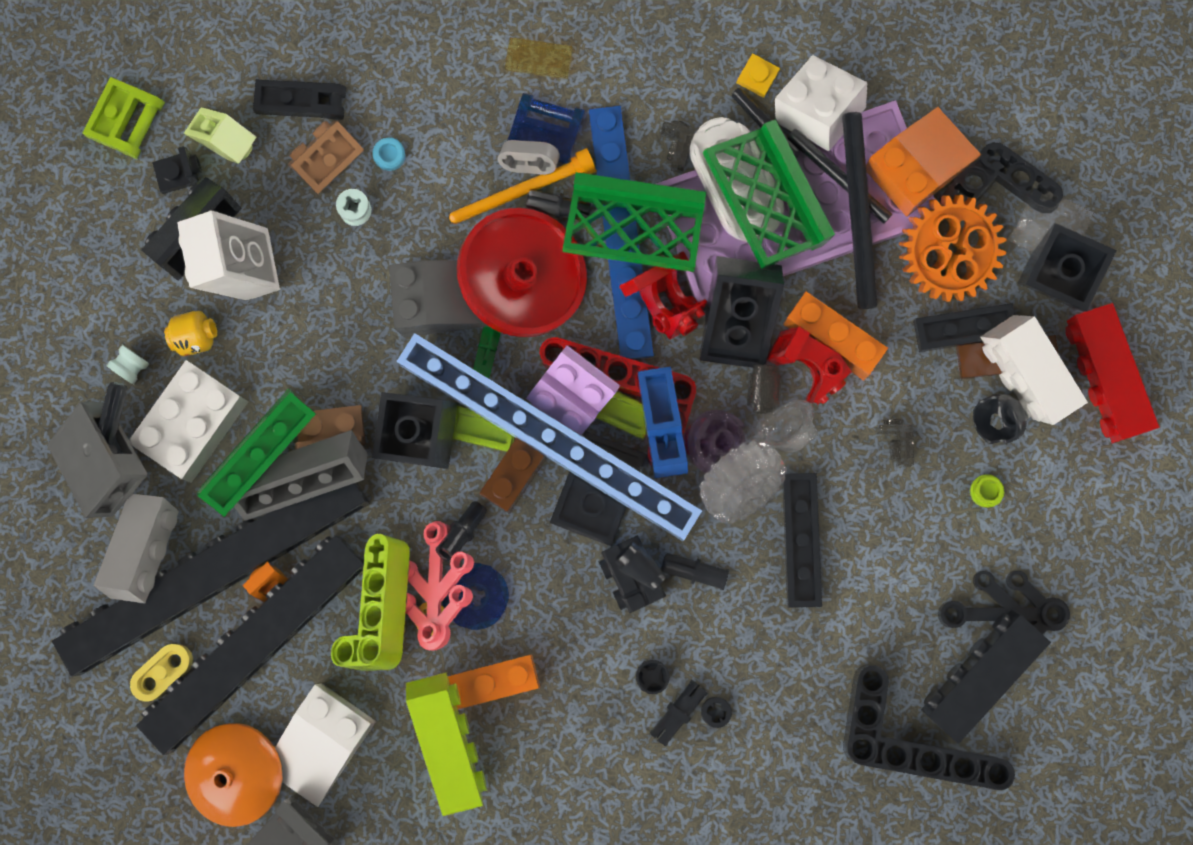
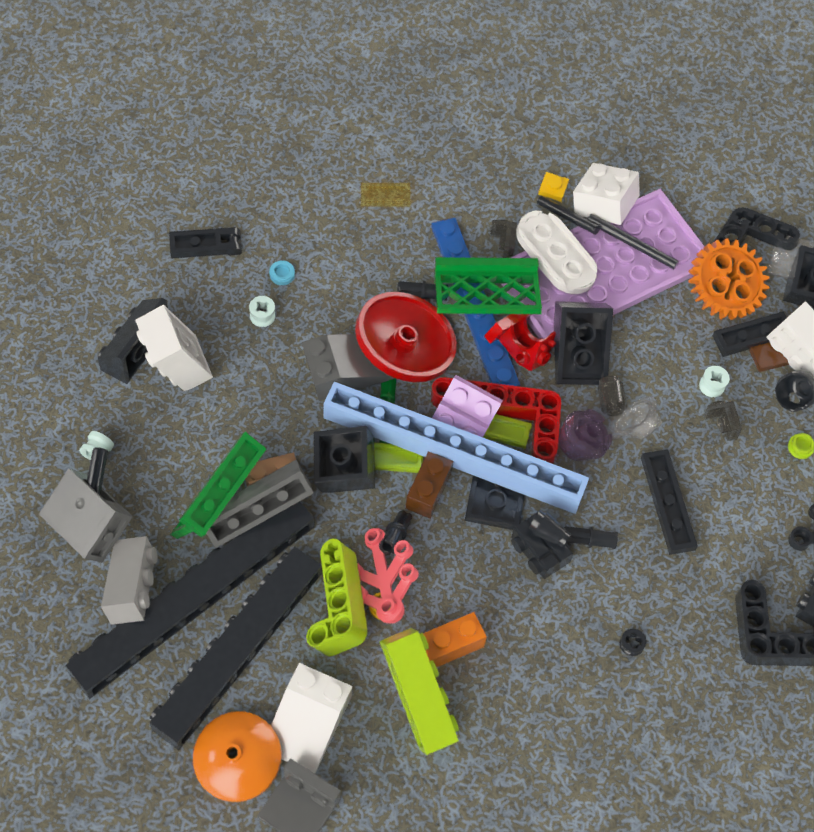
camera: 20 degrees left, 20 degrees down
(114, 113) = (58, 269): lime plate -> none
(162, 671) = (160, 682): light yellow plate -> none
(177, 171) = (115, 304): black bracket -> none
(188, 422) = (156, 480): white brick -> none
(190, 333) = (145, 417): yellow head -> none
(221, 135) = (147, 273): yellowish green slope -> none
(263, 580) = (237, 594): orange plate -> none
(325, 155) = (233, 278): medium nougat bracket -> none
(492, 605) = (430, 589): clear blue plate -> none
(528, 157) = (393, 258): light grey beam -> none
(535, 130) = (401, 246): clear blue plate -> none
(580, 163) = (428, 263): light orange piece -> none
(652, 676) = (576, 614): black wheel -> none
(663, 422) = (542, 423): blue slope -> none
(678, 712) = (603, 646): black pin -> none
(742, 481) = (614, 457): clear gear -> none
(793, 190) = (597, 247): green fence -> none
(797, 345) = (644, 364): red tile -> none
(830, 328) = (657, 350): orange brick -> none
(859, 210) = (654, 261): black axle -> none
(892, 391) = (717, 387): none -> light aqua wheel
(921, 160) = (688, 224): orange slope -> none

